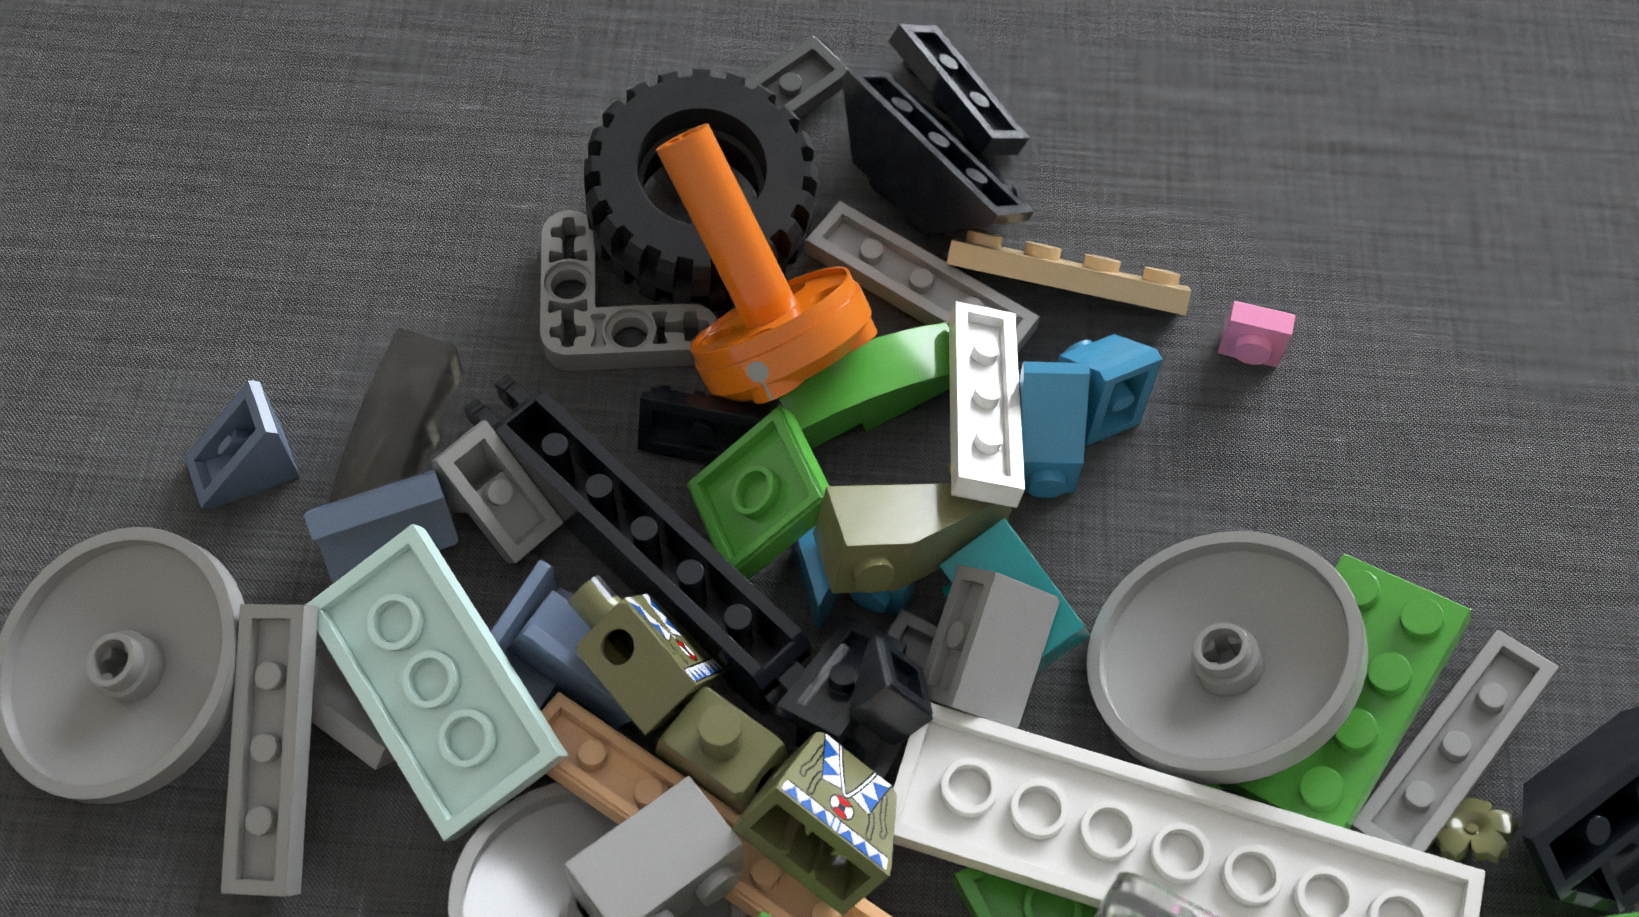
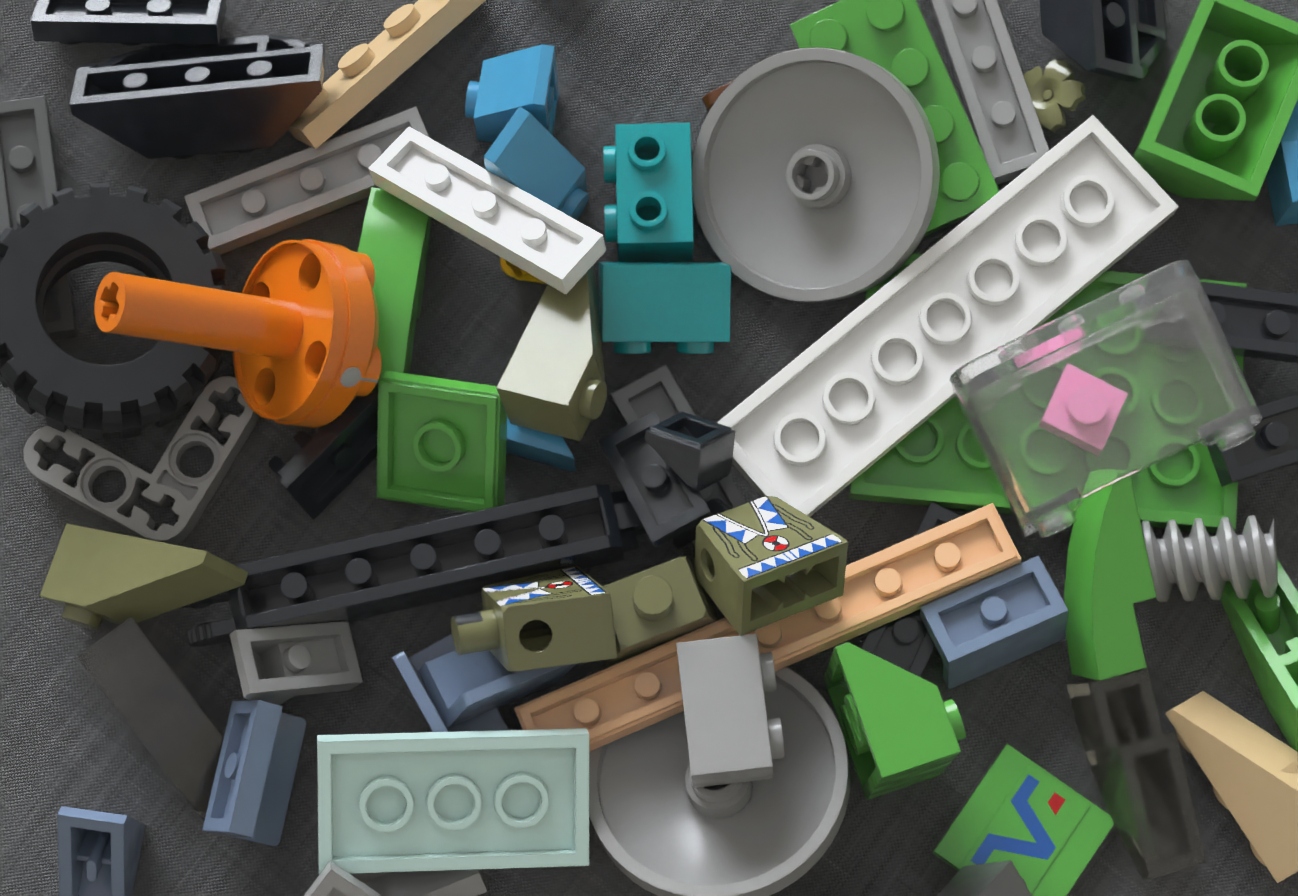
camera: 55 degrees left, 15 degrees up
(489, 329) = (125, 576): none -> olive slope
(989, 645) = (697, 350): light grey panel -> none
(1106, 536) = (652, 192): none -> teal brick

